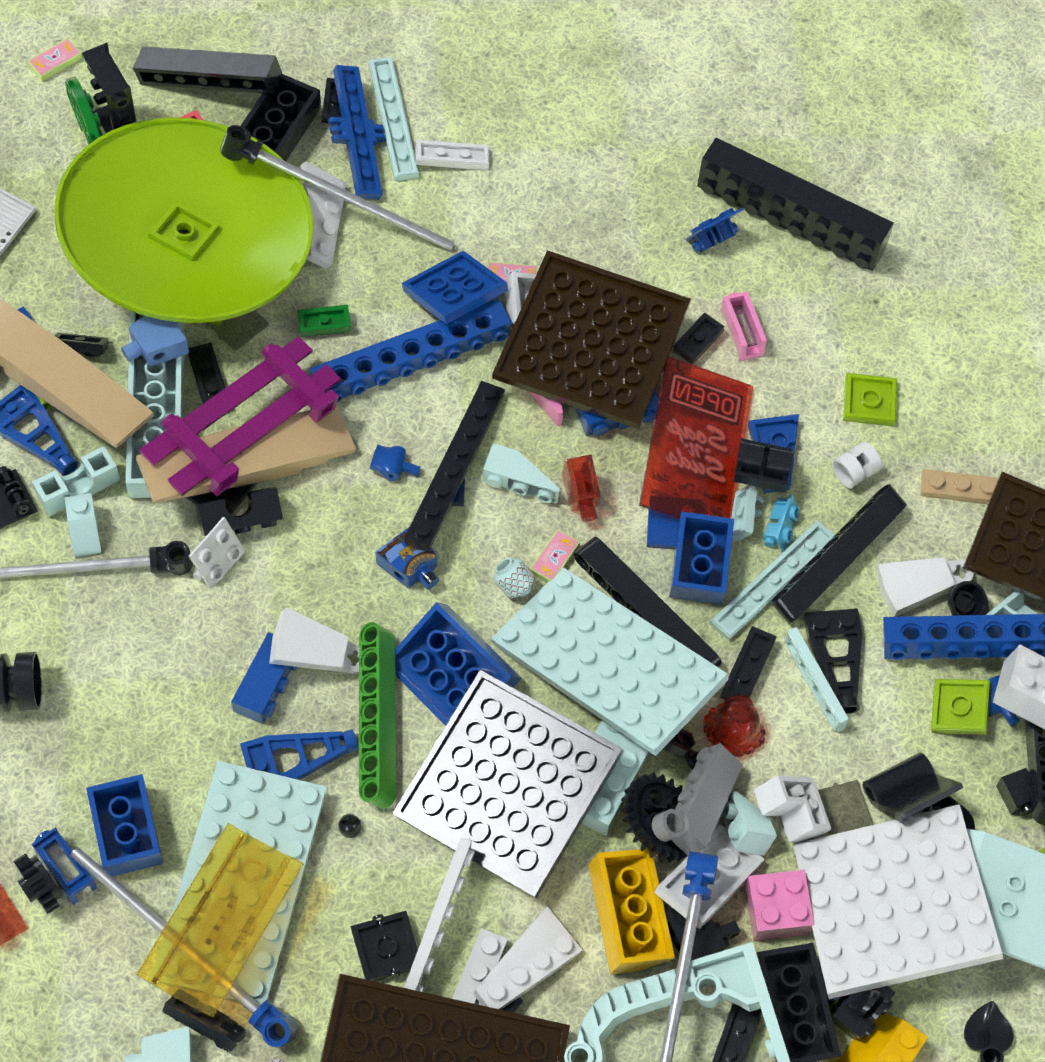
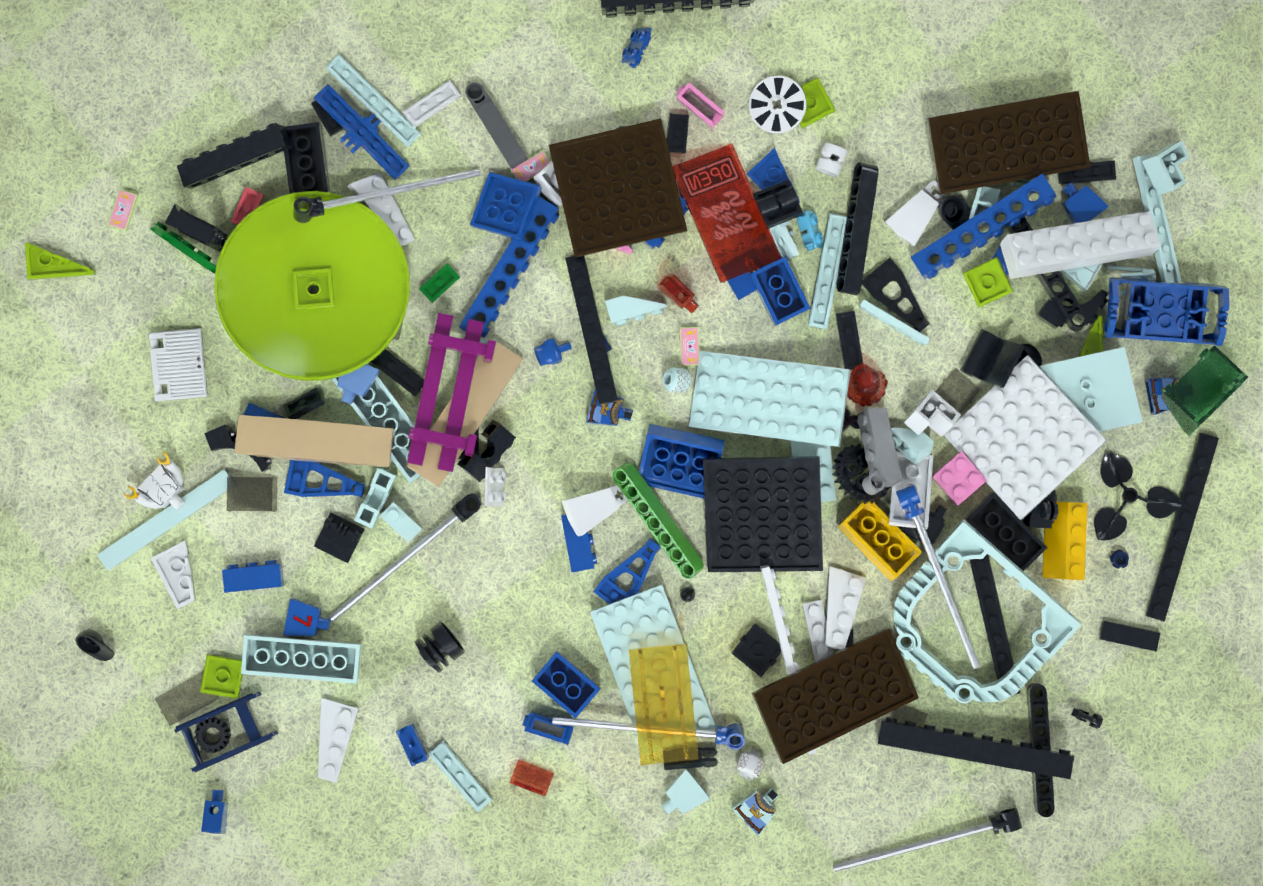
camera: 25 degrees left, 25 degrees up
(37, 882) = (545, 750): black gear -> none
(504, 211) = (495, 125): none -> dark grey piece
(638, 597) = (766, 344): black beam -> none
(841, 361) = (792, 102): none -> white piece
(957, 486) = (908, 124): tan plate -> none

